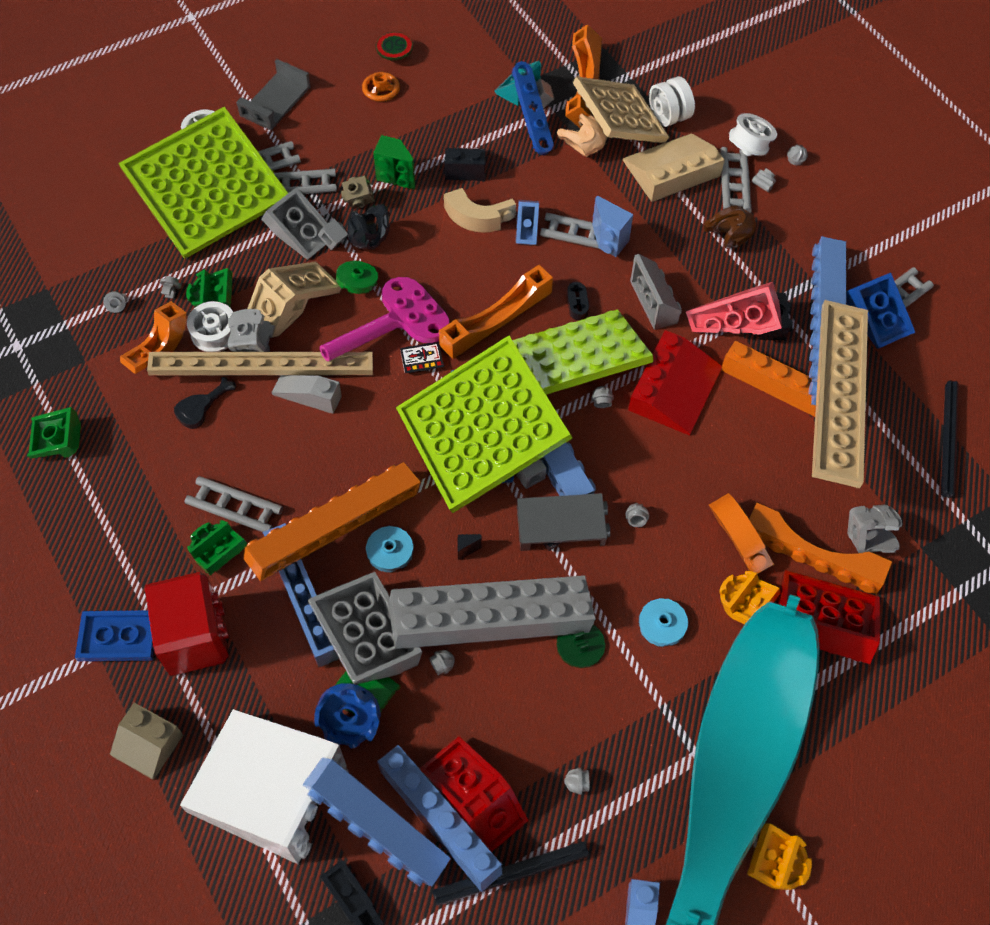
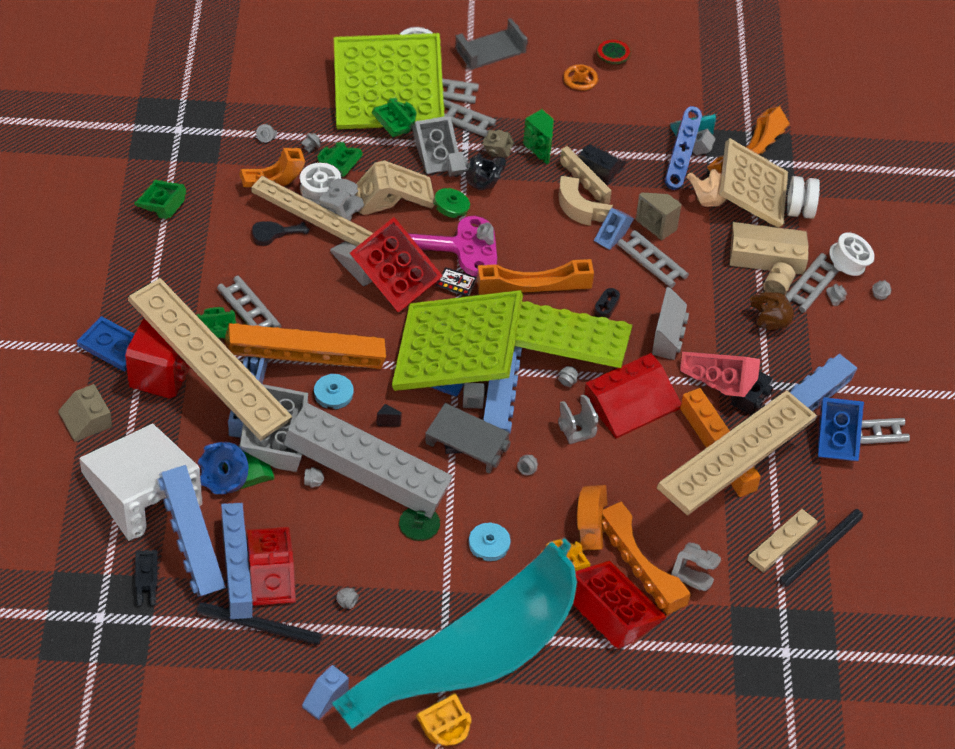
camera: 30 degrees right, 10 degrees down
(240, 215) = (395, 116): none -> green slope
(252, 601) = (210, 359): none -> tan plate
(359, 374) = (396, 264): none -> red slope
(417, 291) = (486, 232): none -> light grey plate
(455, 180) = (585, 175): none -> tan plate
(559, 184) = (658, 213): none -> dark tan slope
(611, 226) = (670, 262): medium blue slope -> none
(652, 439) = (586, 420): none -> light grey piece
(710, 192) = (779, 278): none -> tan wheel
(912, 452) = (782, 540): none -> tan plate

